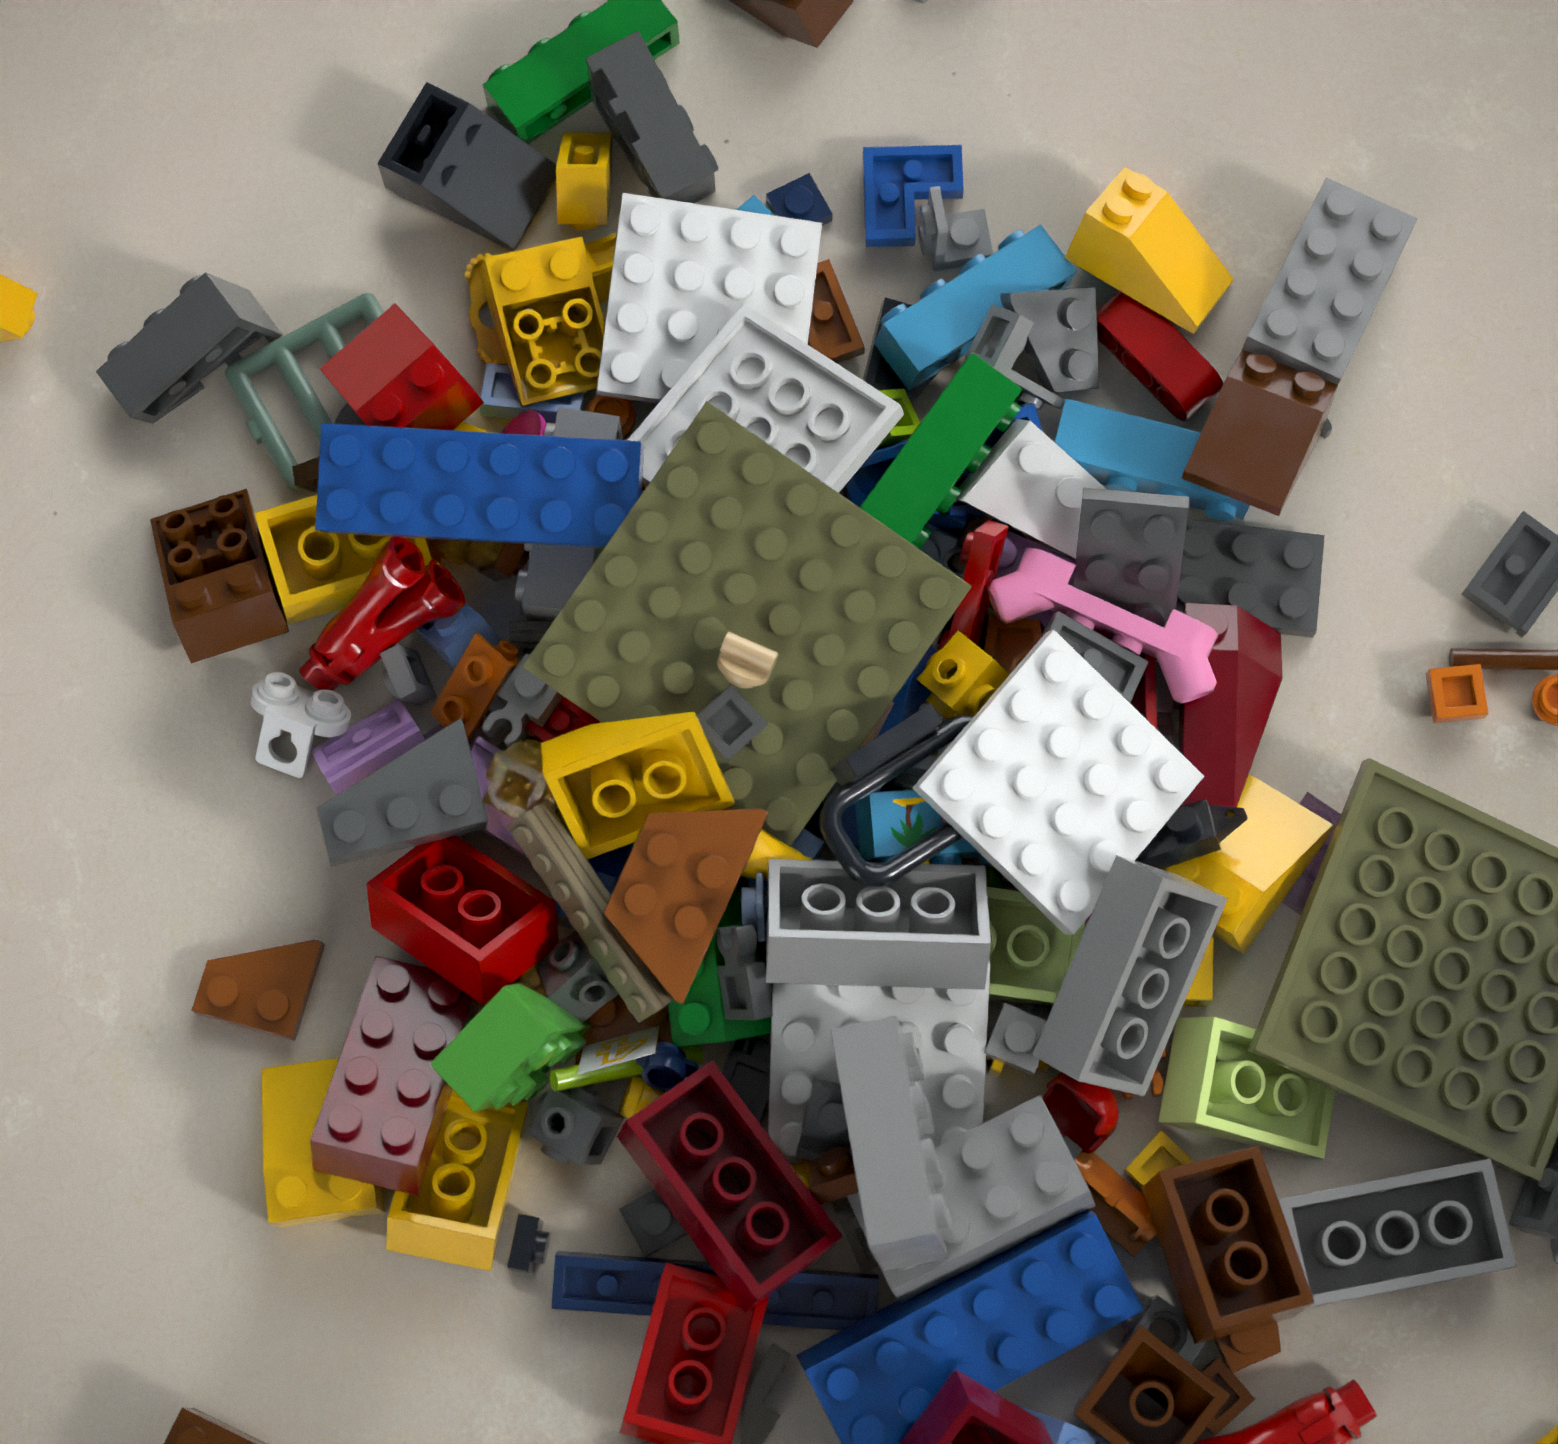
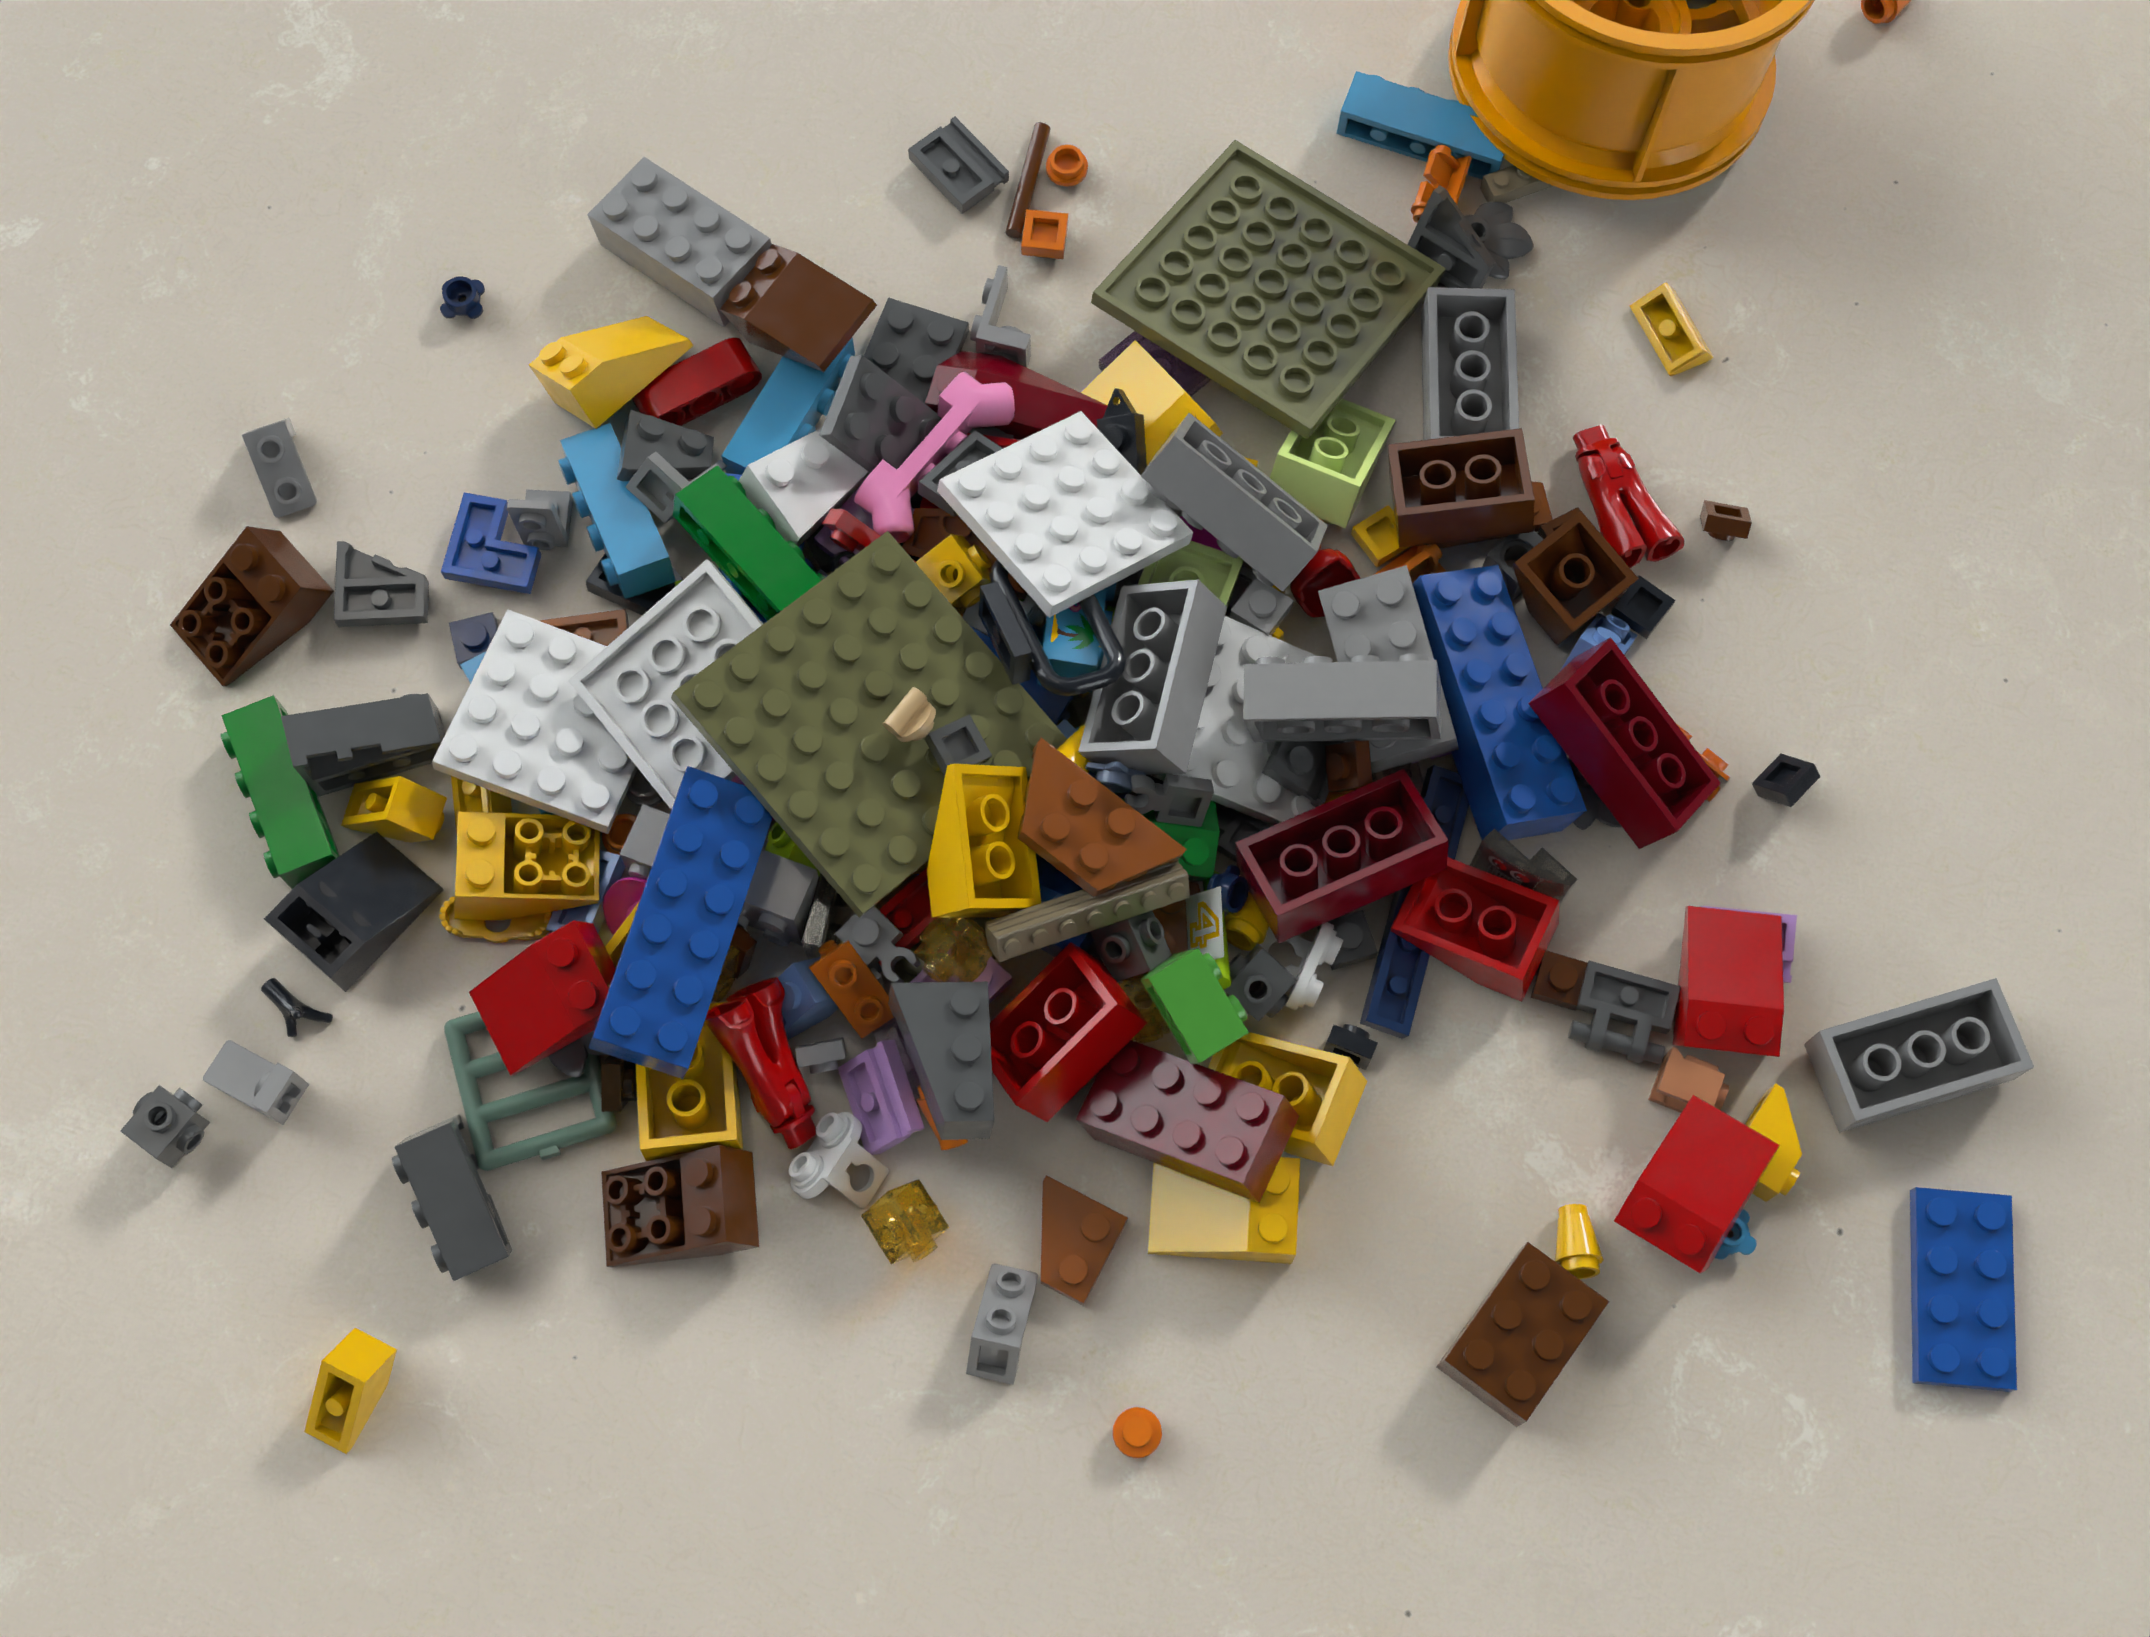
camera: 80 degrees left, 5 degrees down
(66, 1096) = (1137, 1432): none -> orange plate
(158, 928) = (1001, 1323): none -> light grey bracket
(207, 58) = (166, 1124): none -> dark grey brick
(238, 805) = (905, 1222): none -> clear yellow brick
(272, 130) = (256, 1081): none -> light grey bracket
(359, 139) = (291, 1007): none -> black bar
(627, 1187) = (1322, 949): none -> white bracket
(829, 90) = (376, 591): none -> dark grey wing
(1201, 66) = (462, 287): none -> dark blue plate
(1300, 683) = (995, 340): none -> light grey bracket

